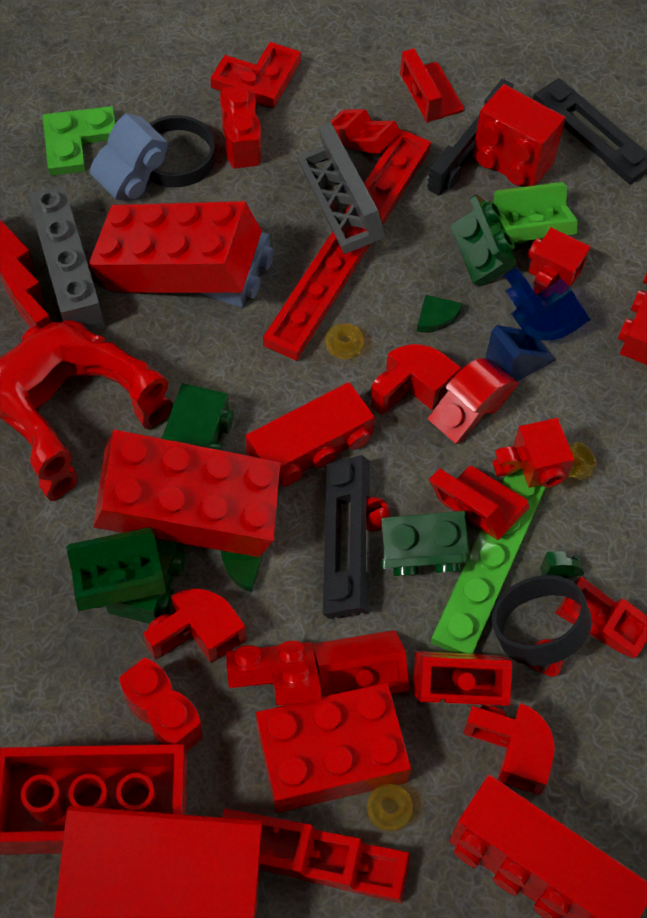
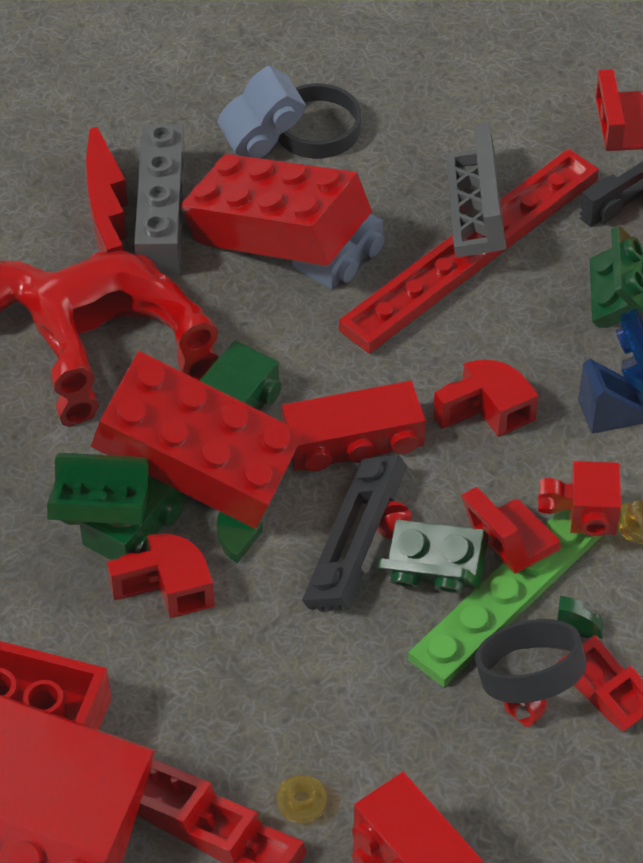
camera: 20 degrees right, 10 degrees down
(68, 131) = (206, 82): bright green plate -> none
(155, 703) = (100, 634): red brick -> none
(241, 126) = (394, 110): red brick -> none
(266, 78) = (437, 71): red plate -> none
(287, 666) = (237, 639): red plate -> none
(332, 747) = (259, 722): red brick -> none
(342, 349) = (424, 353): clear yellow plate -> none
(361, 133) = (525, 144): red slope -> none
(362, 663) = (321, 661): red panel -> none
(437, 314) = (540, 342): dark green tile -> none
(462, 678) = (421, 692): red brick -> none
(472, 392) = (543, 423): red brick -> none
(526, 744) = (464, 772): red brick -> none

